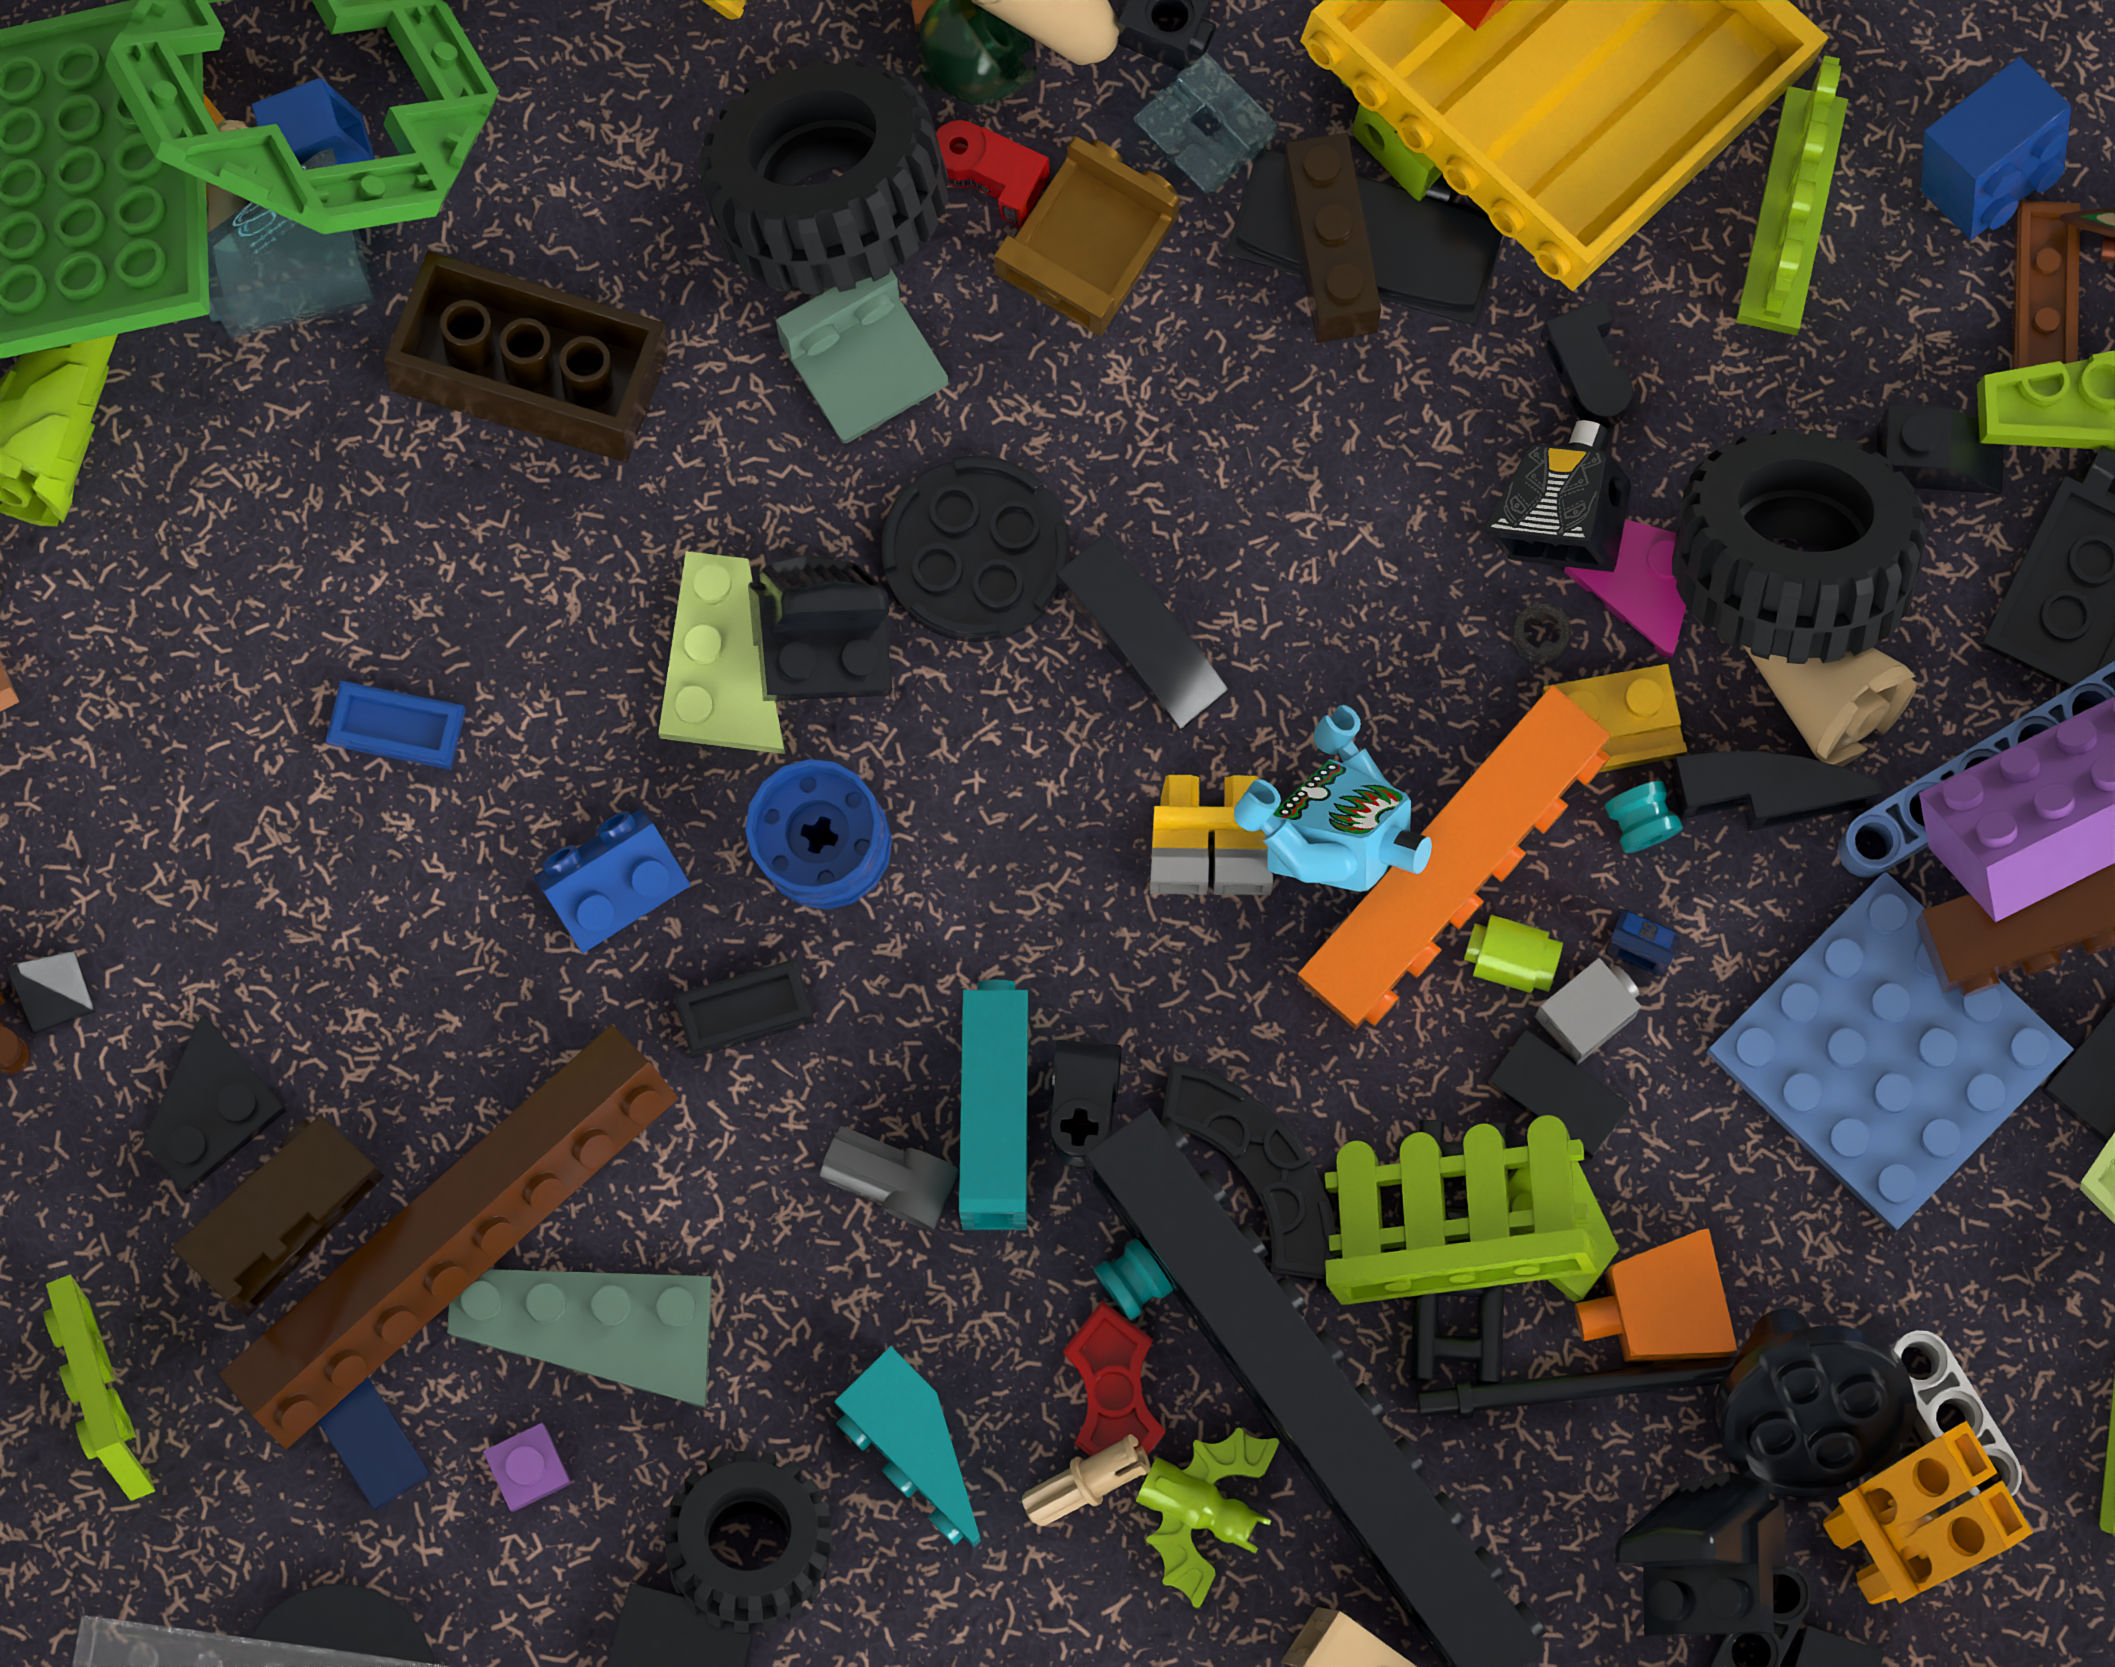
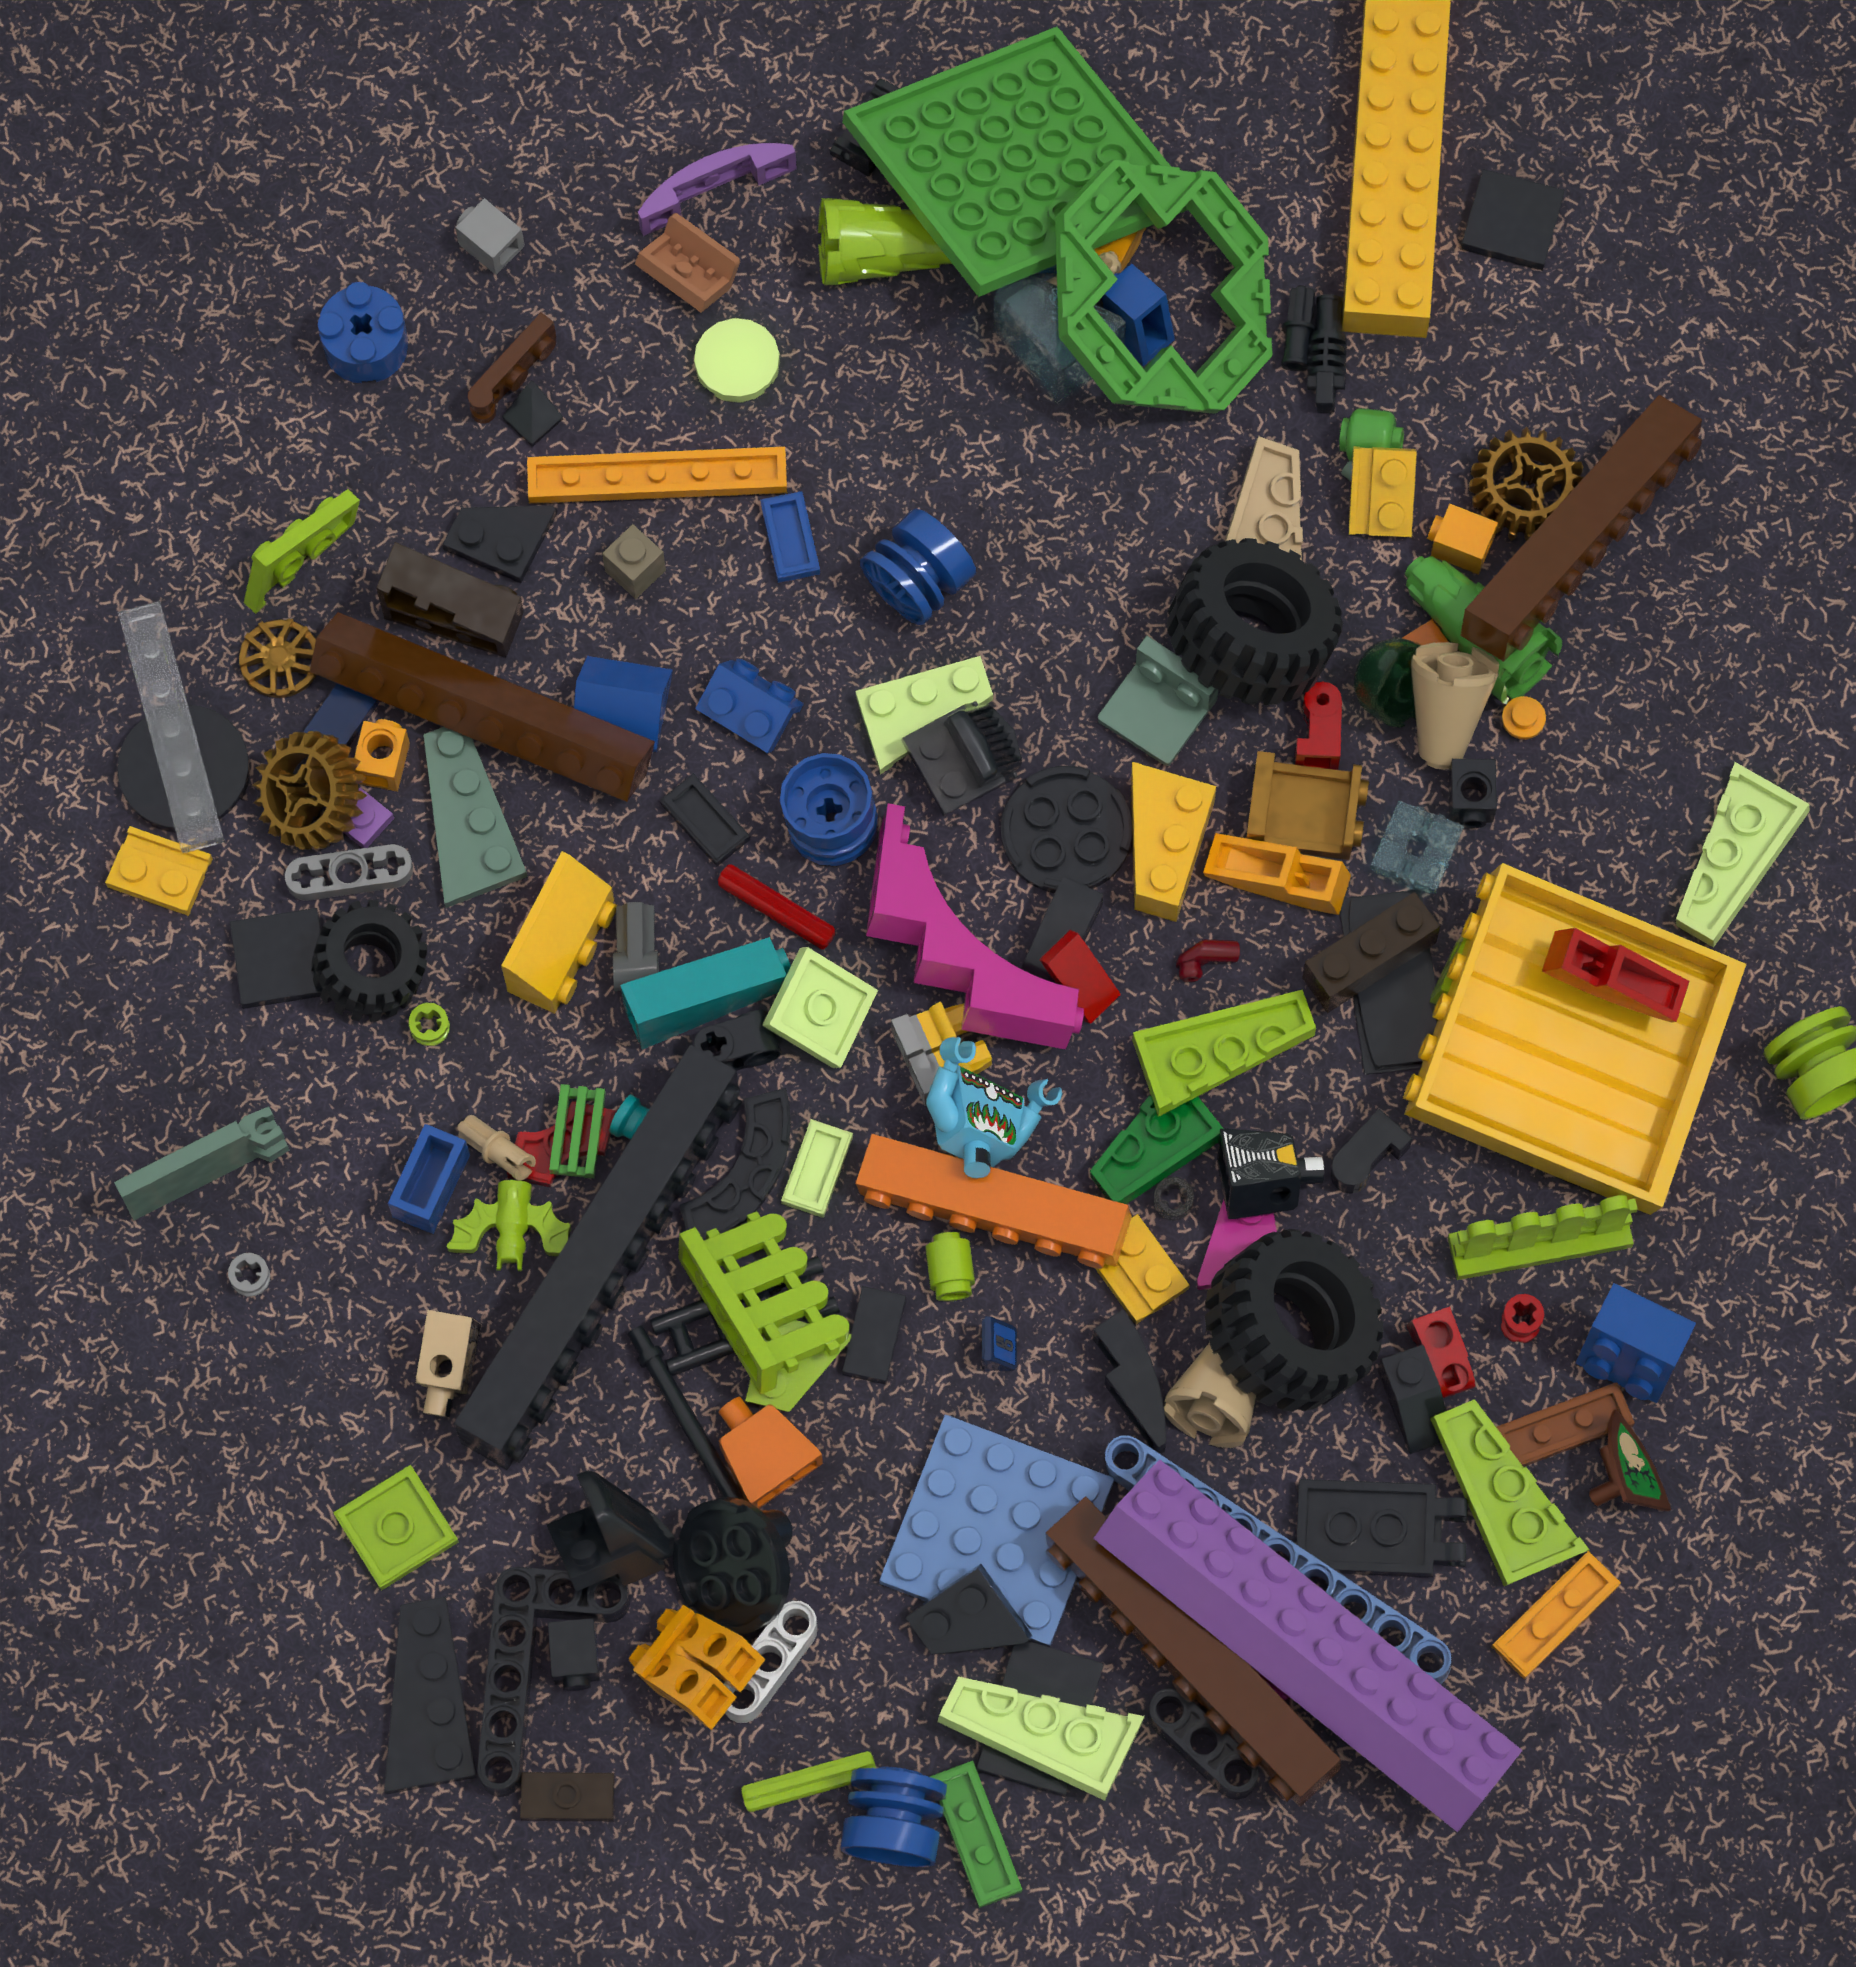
camera: 65 degrees right, 5 degrees down
(108, 686) = (736, 360): none -> yellowish green tile
(223, 862) = (657, 475): none -> light orange plate
(237, 1485) = (278, 657): none -> pearl gold wheel
(337, 942) = (634, 561): none -> dark tan brick
(463, 1556) = (329, 779): none -> pearl gold gear
(474, 1418) = (384, 772): none -> light orange brick
(519, 1038) = (624, 695): none -> blue slope
(526, 356) = (1058, 504): dark brown brick -> none
(532, 571) = (918, 566): none -> blue wheel
(625, 1475) = (335, 860): none -> light grey beam
(648, 97) = (1270, 498): none -> tan wing
(830, 1266) = (558, 935): none -> yellow slope
(846, 1495) = (430, 1037): none -> lime bush
(907, 1425) = (483, 1029): teal slope -> none
(910, 966) = (776, 906): none -> red axle
(1009, 787) = (998, 995): none -> dark pink arch
(1053, 424) = (1167, 835): none -> yellow wedge
(1066, 1333) = (581, 1094): none -> bright green tile
(1086, 967) = (820, 1007): none -> yellowish green plate
(1095, 1590) = (429, 1178): none -> blue brick
(1161, 309) = (1278, 872): none -> light orange slope
(1197, 614) = (1076, 967): none -> red tile
(1227, 448) = (1204, 952): none -> dark red arm
(1297, 1070) = (817, 1168): none -> yellowish green tile
(1366, 496) = (1211, 1048): none -> lime wing
(1457, 617) = (1154, 1148): none -> green wing
(1590, 1009) = (935, 1328): light grey brick -> none
(1643, 816) = (1078, 1310): teal wheel -> none
(1869, 382) = (1445, 1350): none -> red leg
(1899, 258) = (1522, 1305): none -> red bush
(1999, 1136) = (968, 1617): none -> black wing

